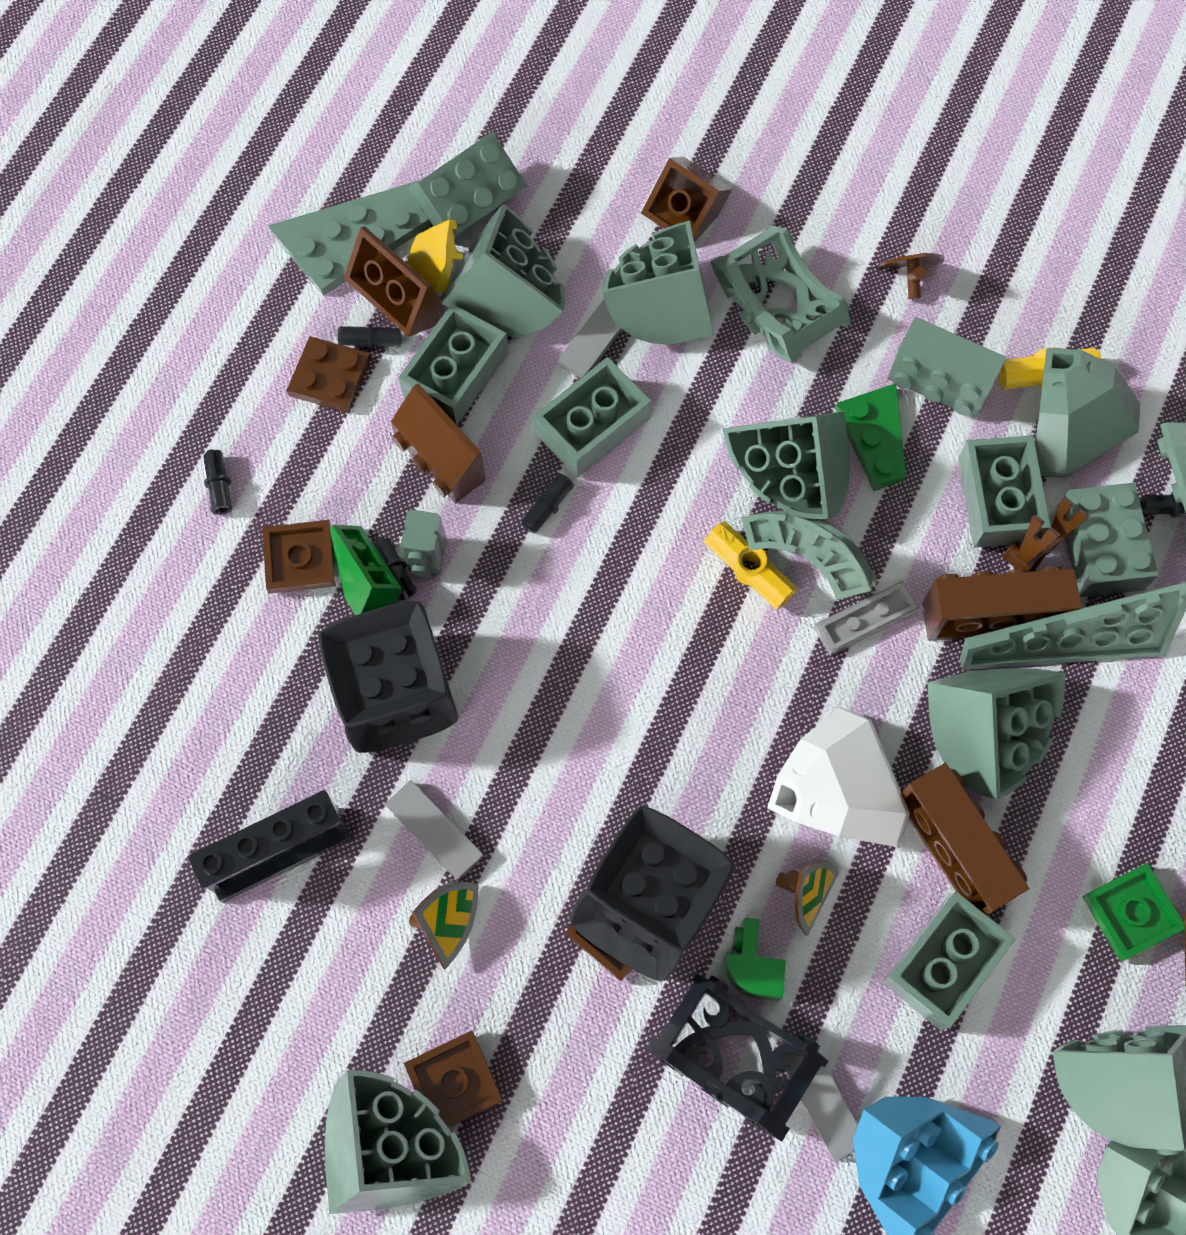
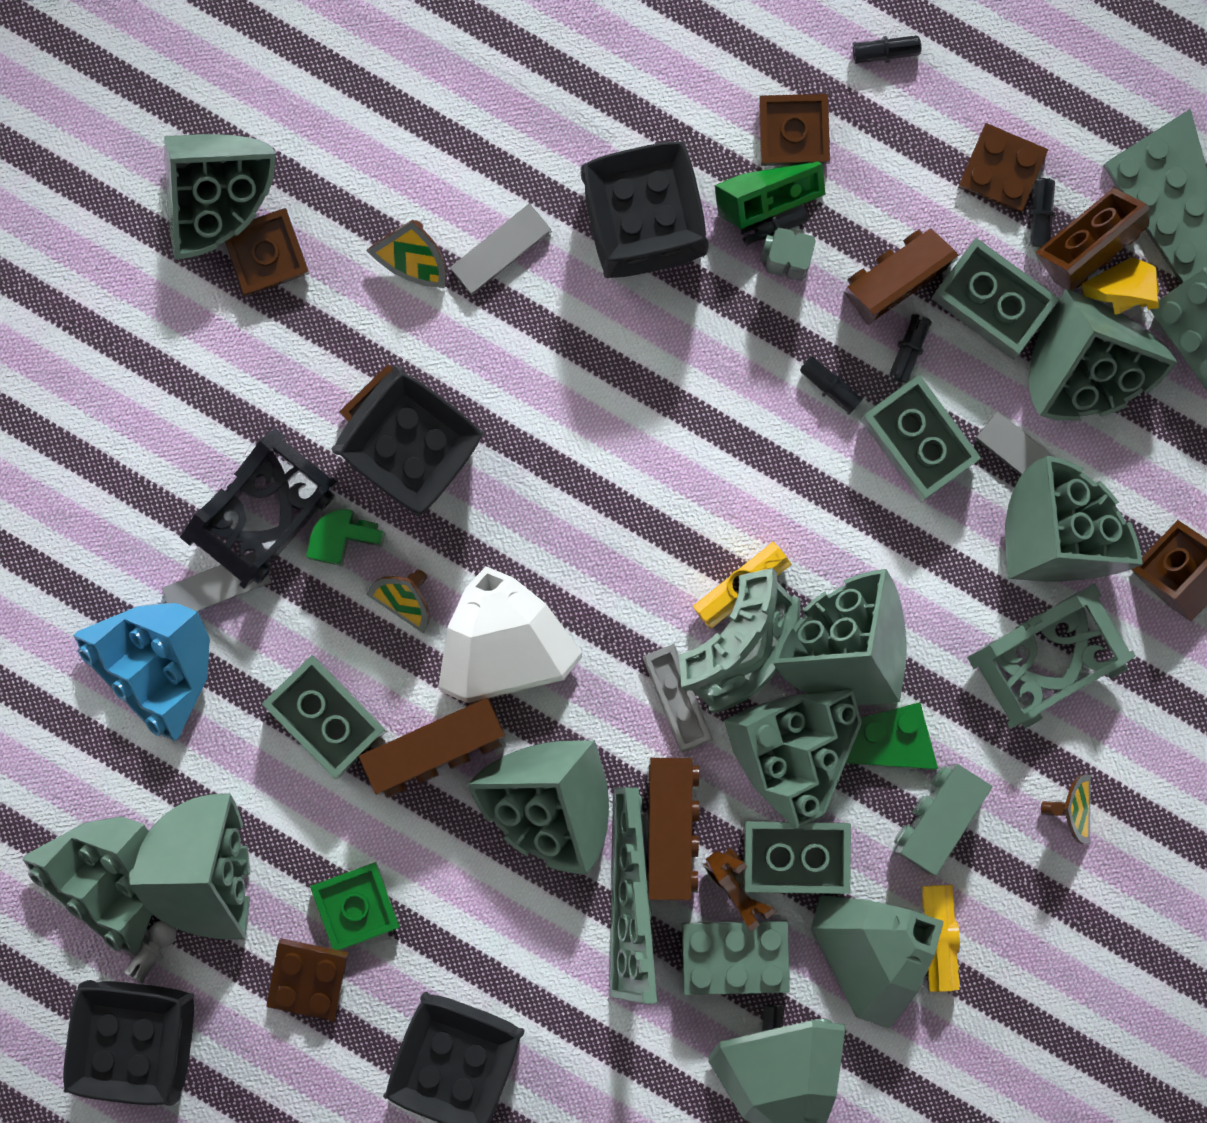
camera: 95 degrees right, 15 degrees up
(271, 847) = (491, 94): black fence -> none
(505, 437) = (910, 348): none -> black axle
(902, 500) = (796, 749): none -> sand green brick

